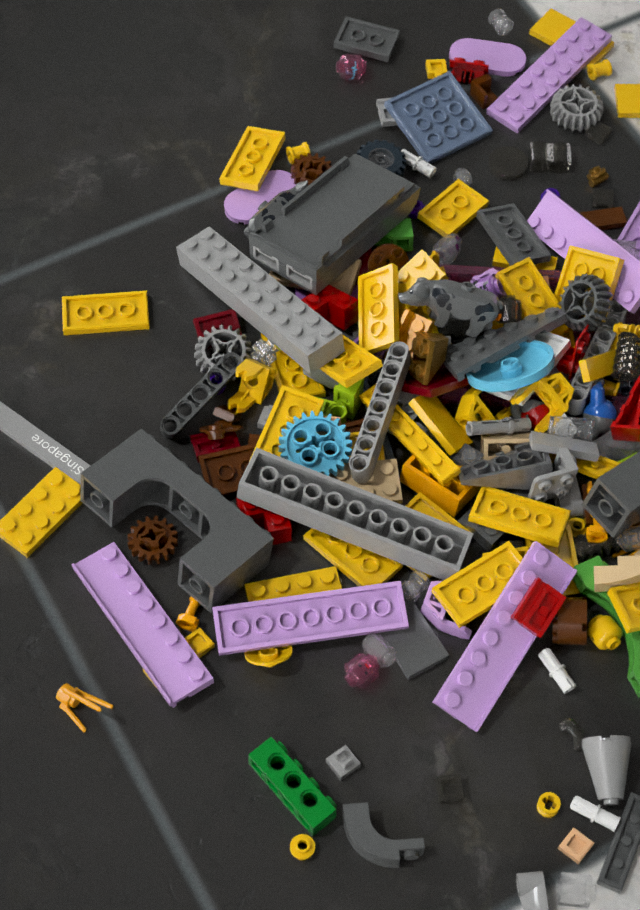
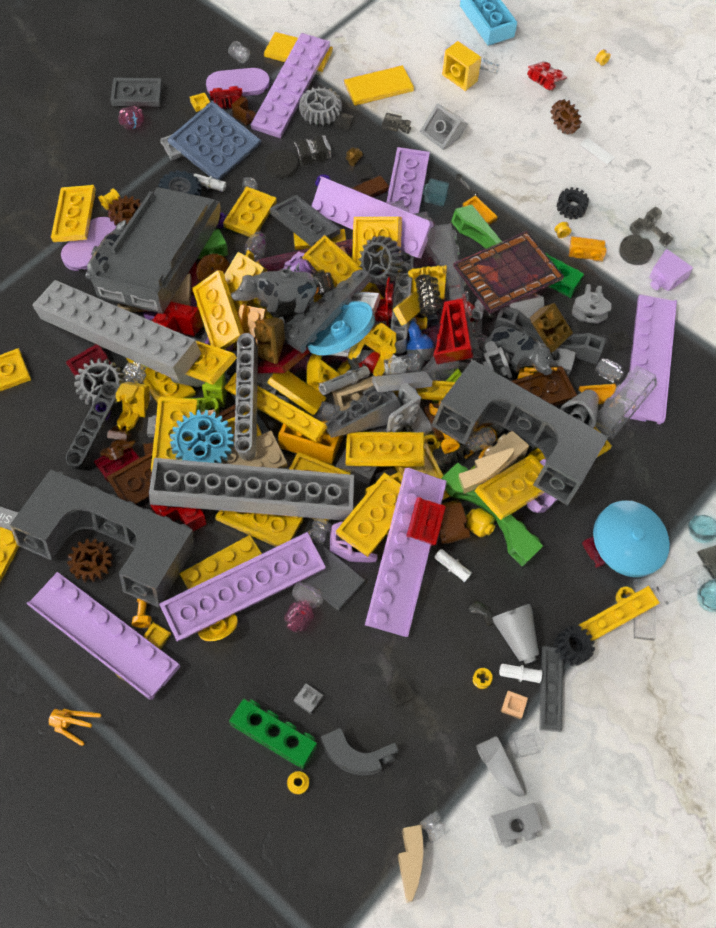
camera: 20 degrees left, 5 degrees up
(600, 69) = (328, 71): yellow bush -> none

